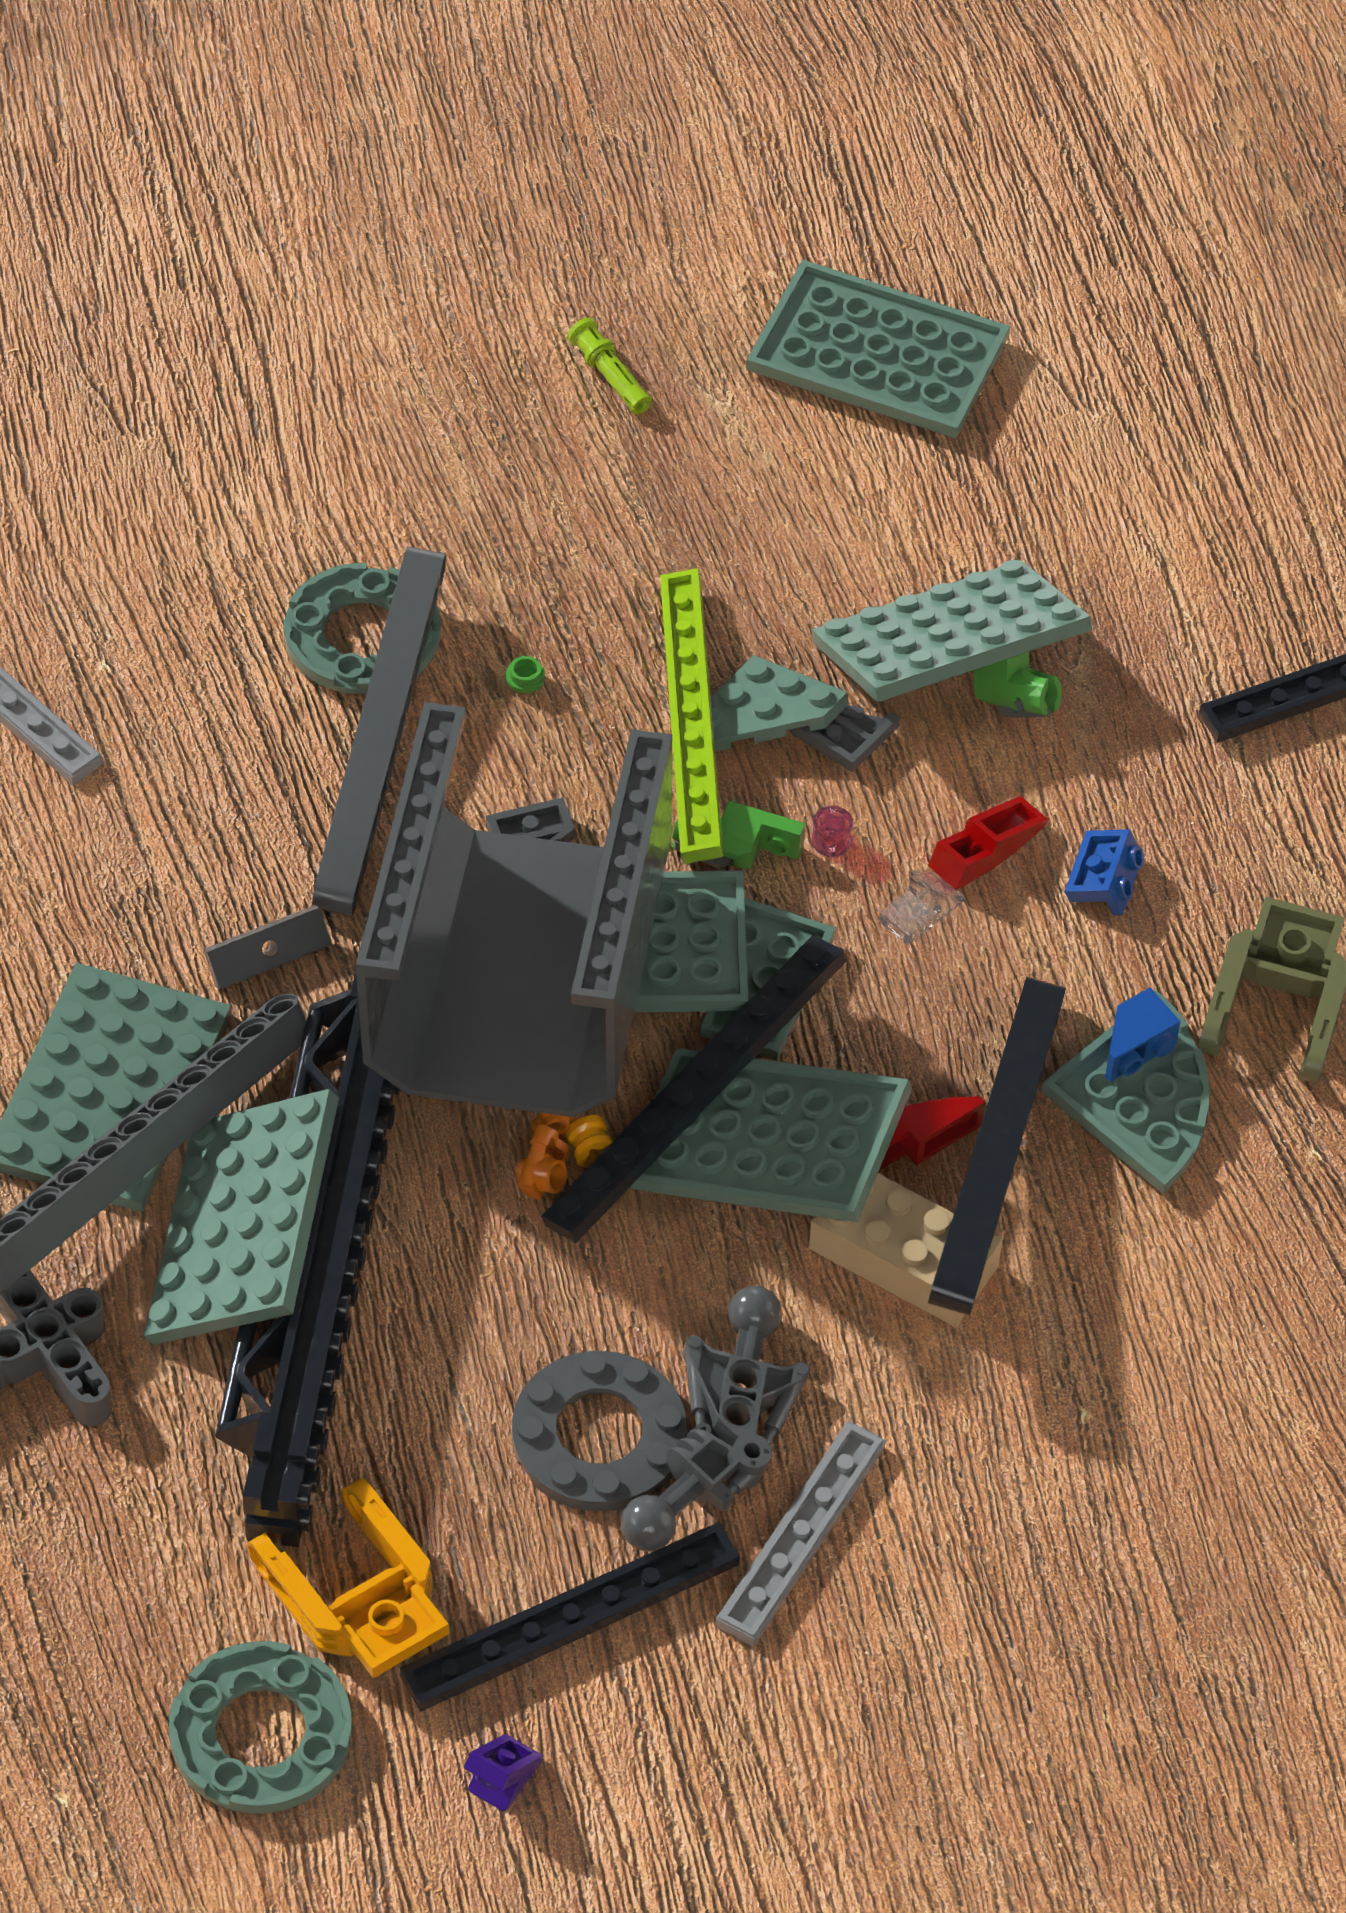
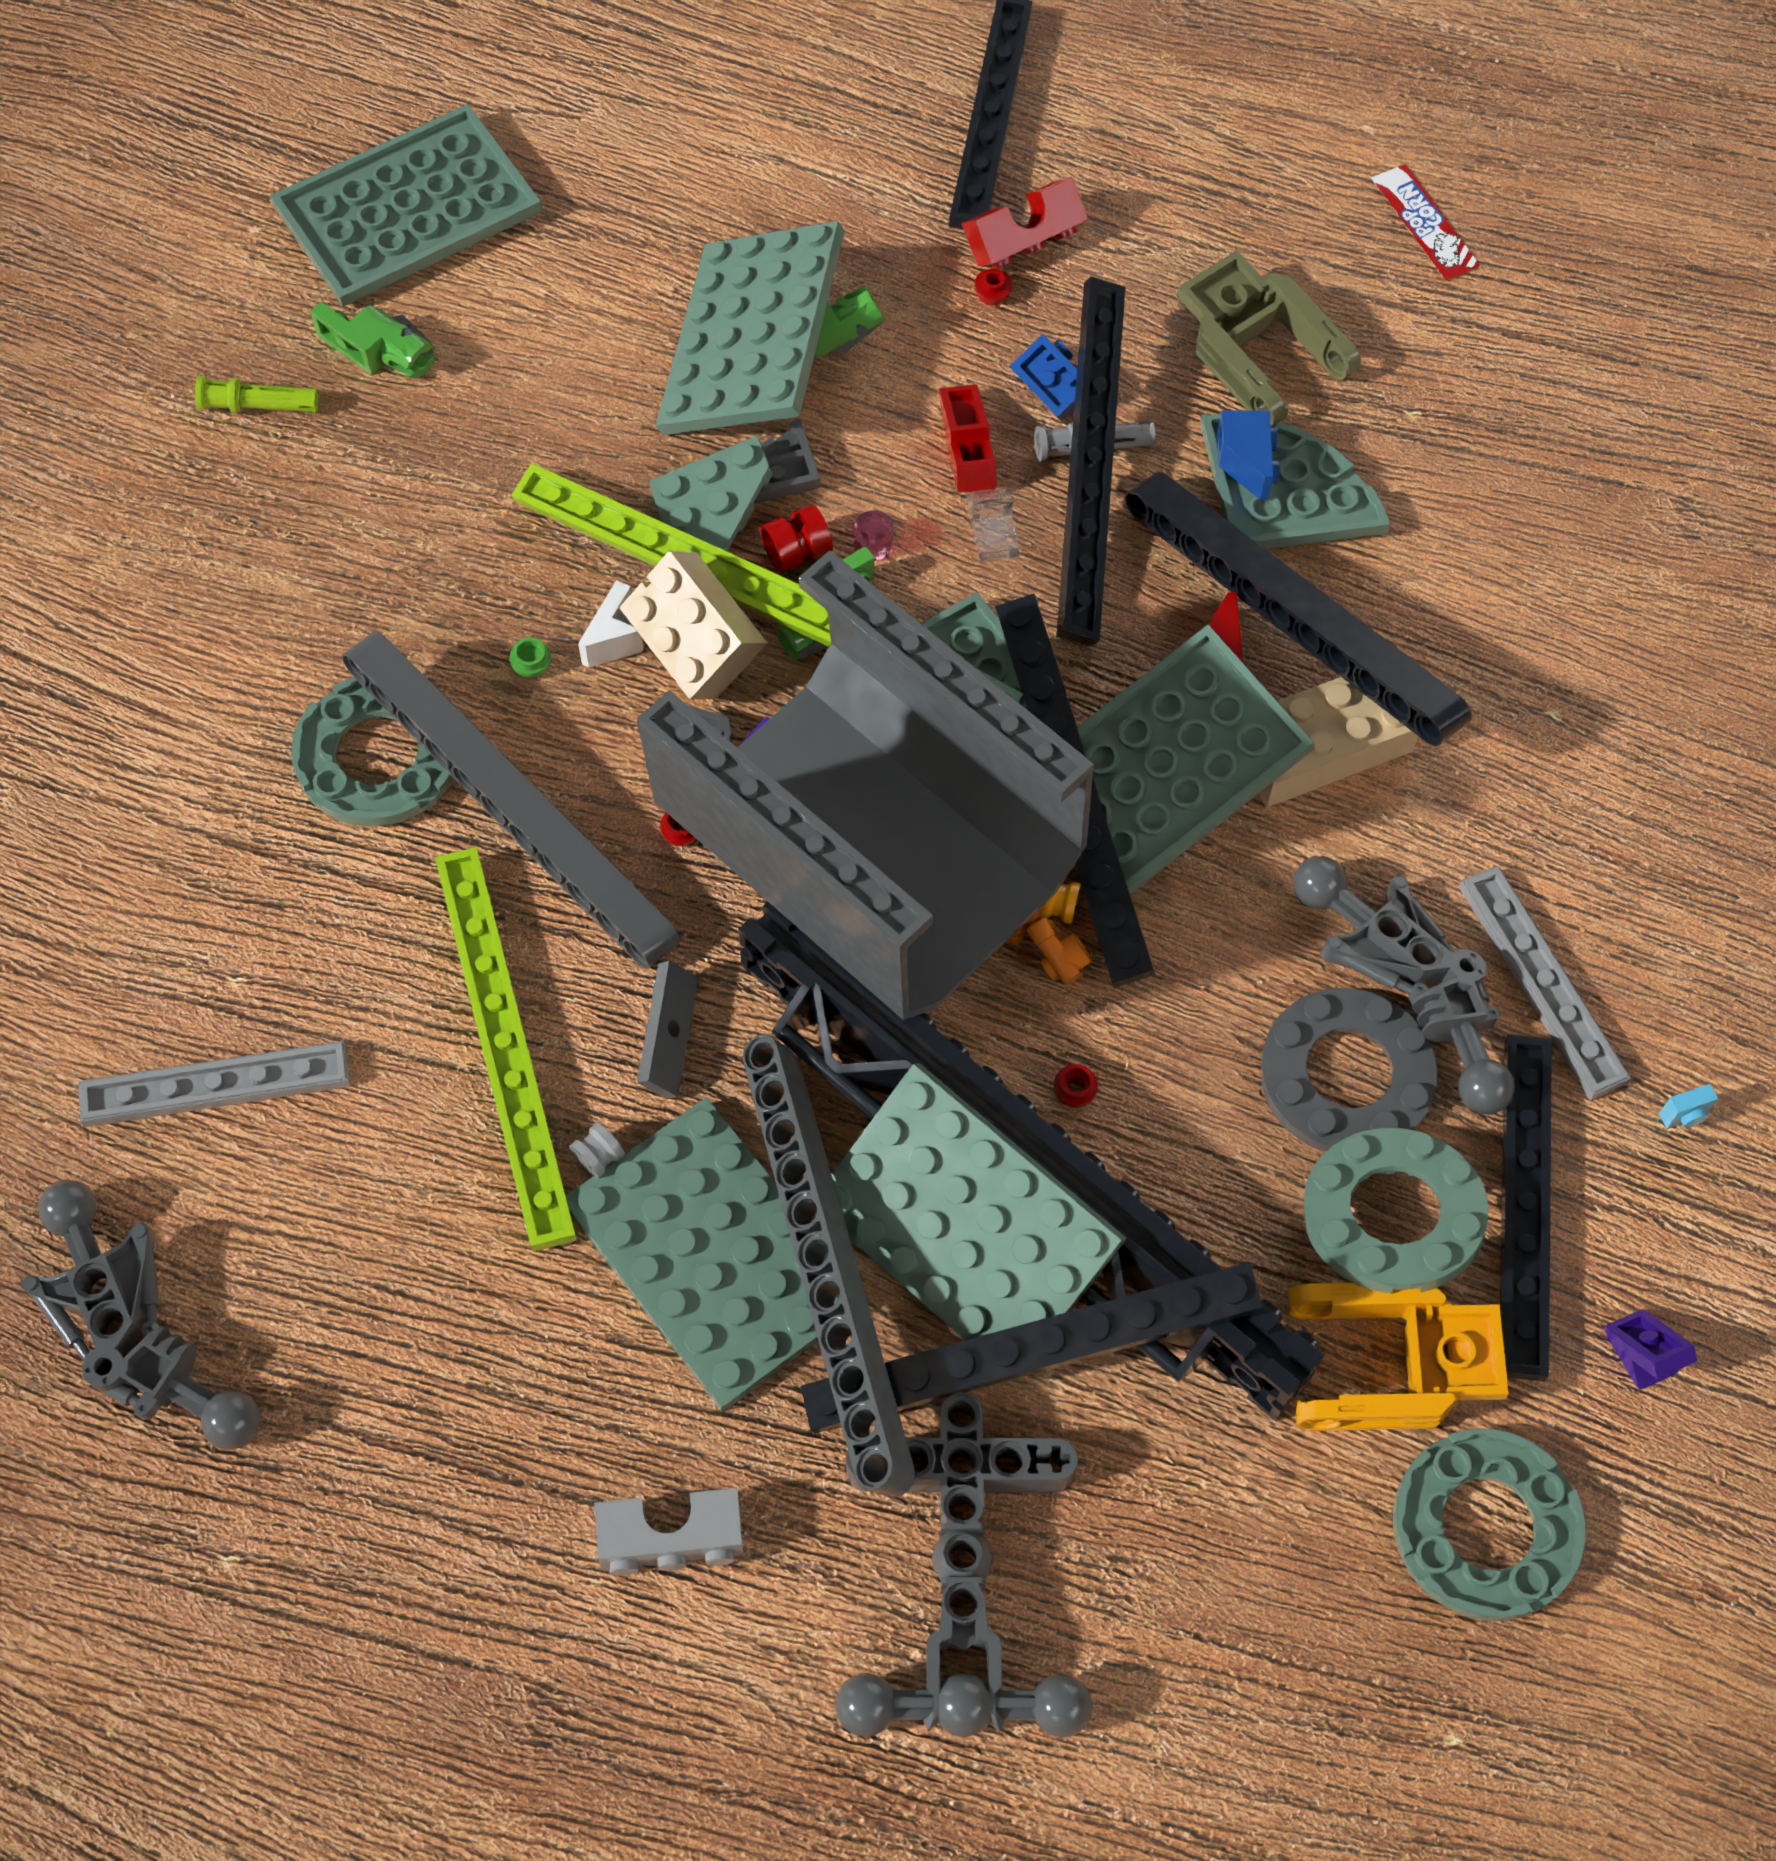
camera: 55 degrees left, 10 degrees up
(131, 960) = (597, 1150): none -> light grey wheel
(173, 855) = (505, 1051): none -> lime plate
(189, 1330) = (1055, 1341): none -> black plate
(433, 1234) = (1078, 1074): none -> red plate
(470, 1558) = (1385, 1265): none -> sand green plate
(584, 707) = (610, 631): none -> white slope
(600, 762) = (693, 625): none -> piece
(730, 408) = (375, 339): none -> bright green plate
(756, 1693) = (1689, 1107): none -> medium azure plate
(775, 777) = (796, 538): none -> red wheel
(1028, 929) = (1091, 462): none -> black plate
(1052, 917) = (1058, 441): none -> light grey pin
(1163, 785) = (995, 293): none -> red plate
(1207, 749) = (1054, 211): none -> arch

